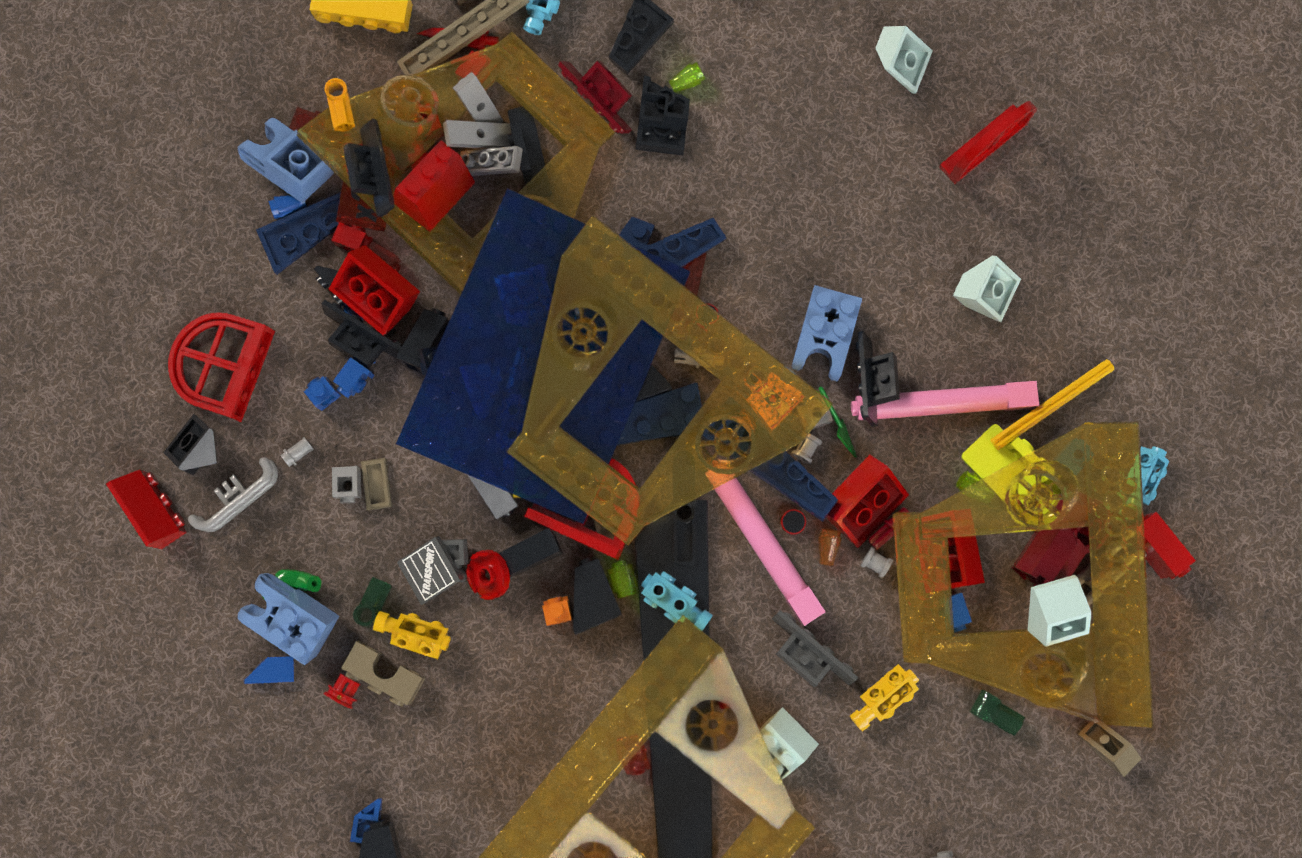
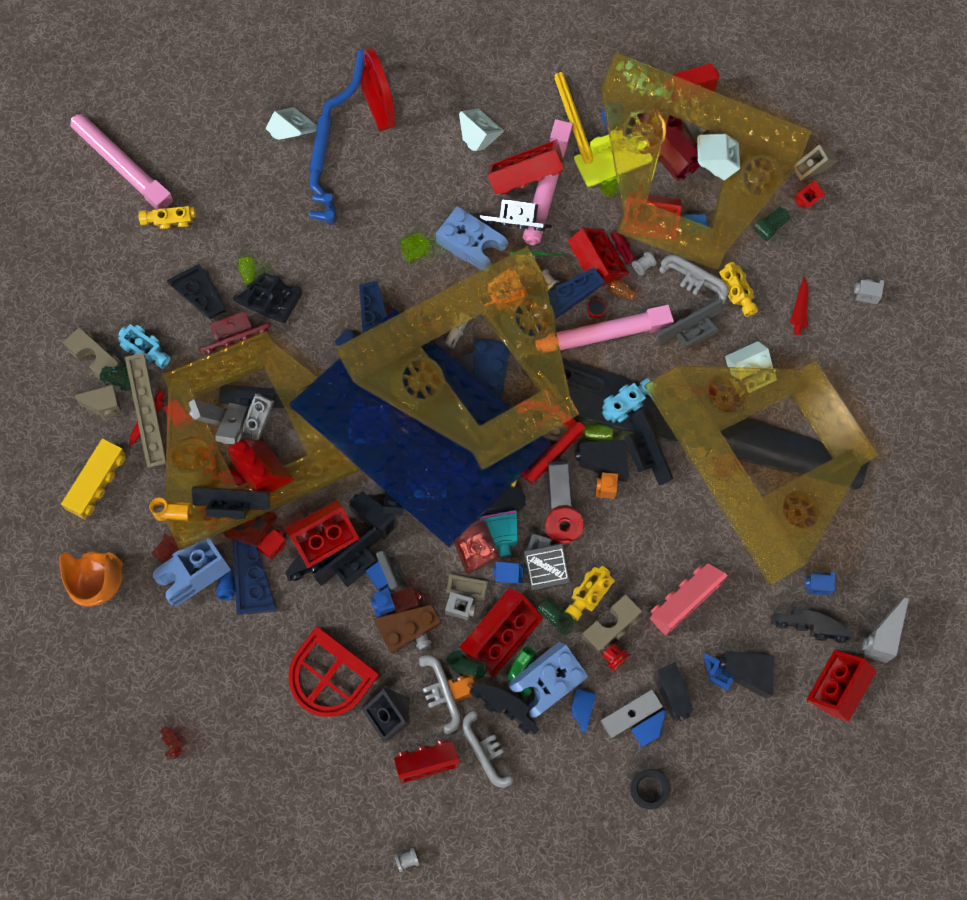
camera: 80 degrees left, 10 degrees down
(34, 525) = (406, 860): none -> light grey bush
(89, 216) = (169, 739): none -> clear red bracket
(180, 788) = (664, 784): none -> black tyre
(181, 573) = (485, 751): none -> light grey piece
(237, 51) = (92, 577): none -> orange piece
(242, 568) = (499, 700): none -> black slope
(250, 521) = (460, 689): none -> orange brick
(271, 720) = (642, 708): none -> light grey tile
(271, 760) = (650, 729): none -> blue slope
(273, 515) = (465, 665): none -> clear green piece
(301, 430) = (407, 626): none -> reddish brown wing
(321, 775) = (673, 692): none -> black slope
(331, 543) = (502, 631): none -> red slope
(335, 419) = (407, 599): none -> clear red bracket
(358, 389) = (392, 571): none -> dark grey tile
(405, 528) = (509, 572): none -> blue brick
(423, 479) = (476, 547): none -> clear red tile
(442, 756) = (687, 598): none -> coral slope
(454, 501) = (503, 531): none -> teal torso
(620, 643) = (646, 448): none -> black bracket
(791, 267) = (414, 247): none -> clear neon green brick
(880, 635) = (695, 276): none -> light grey piece
(883, 788) = (800, 311): none -> red bar
(884, 103) = (321, 143): none -> blue piece
(951, 366) = (526, 167): none -> red slope
(1058, 760) = (814, 193): none -> red brick

